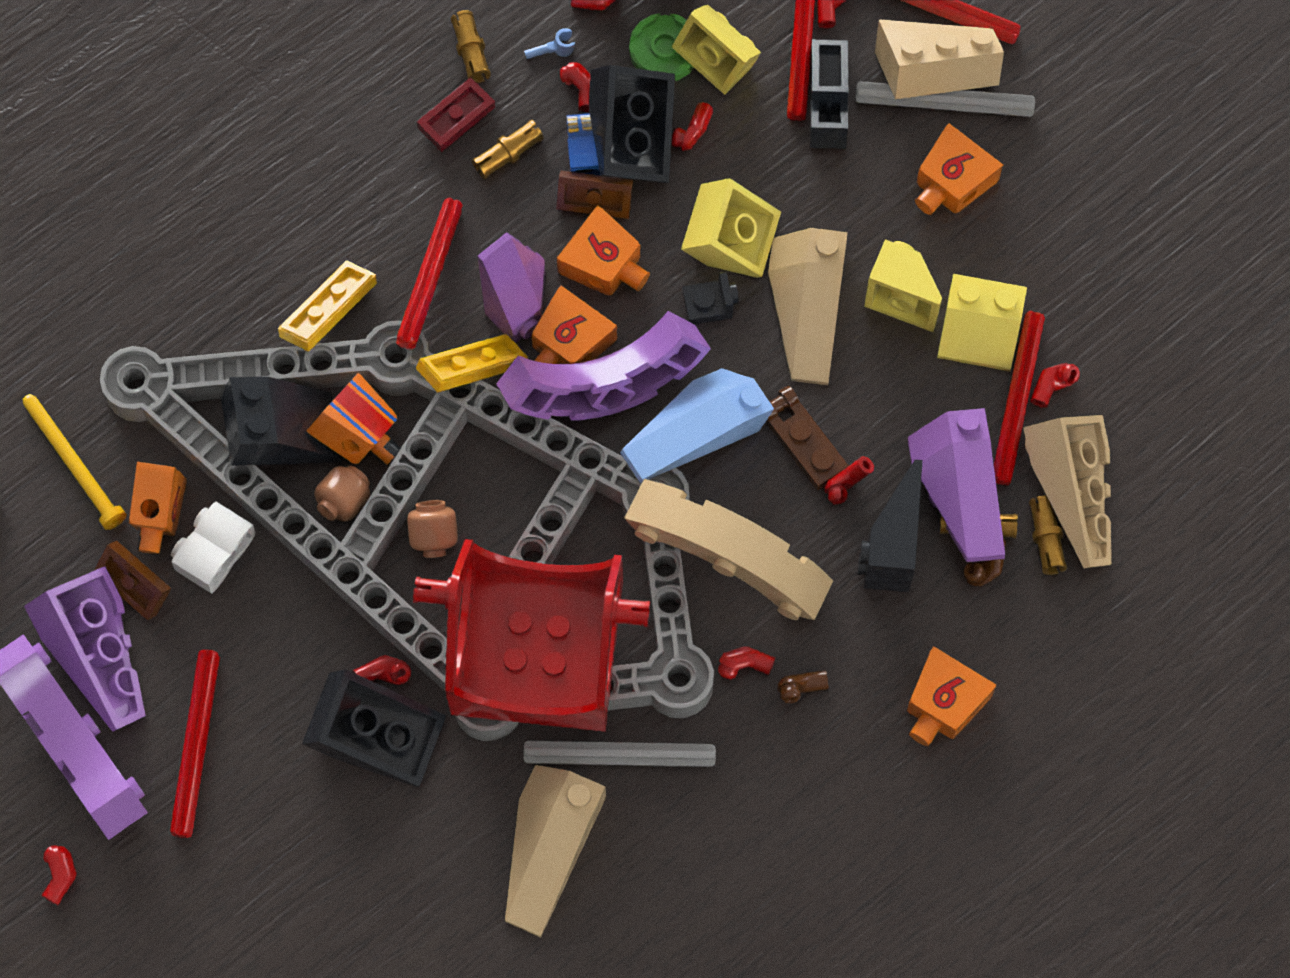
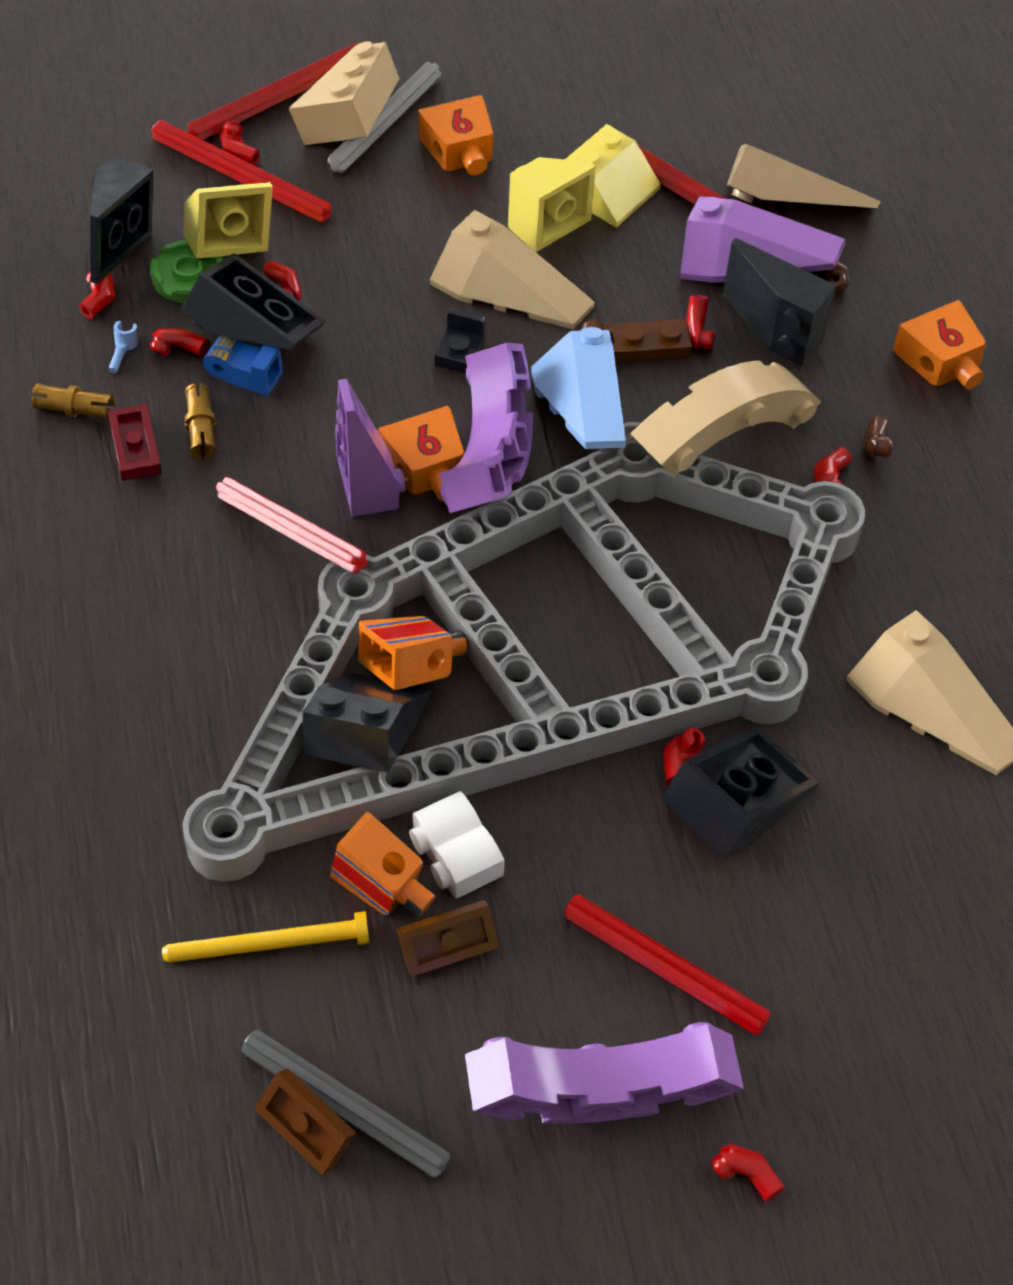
camera: 65 degrees left, 15 degrees down
(87, 638) = (464, 1009): medium lavender wedge -> none
(327, 305) = (262, 624): yellow tile -> none
(342, 493) = (471, 701): nougat head -> none
(432, 528) = (557, 643): nougat head -> none
(469, 362) = (410, 528): yellow tile -> none
(531, 637) = (743, 584): red piece -> none
(585, 191) = (298, 374): reddish brown plate -> none
(602, 255) = (372, 383): orange torso -> none
(619, 753) = (870, 605): light grey axle -> none
(731, 228) = (401, 296): light yellow slope -> none
(829, 94) = (325, 176): black slope -> none
(1047, 535) = (831, 221): pearl gold pin -> none
(1053, 379) = (688, 160): red arm -> none

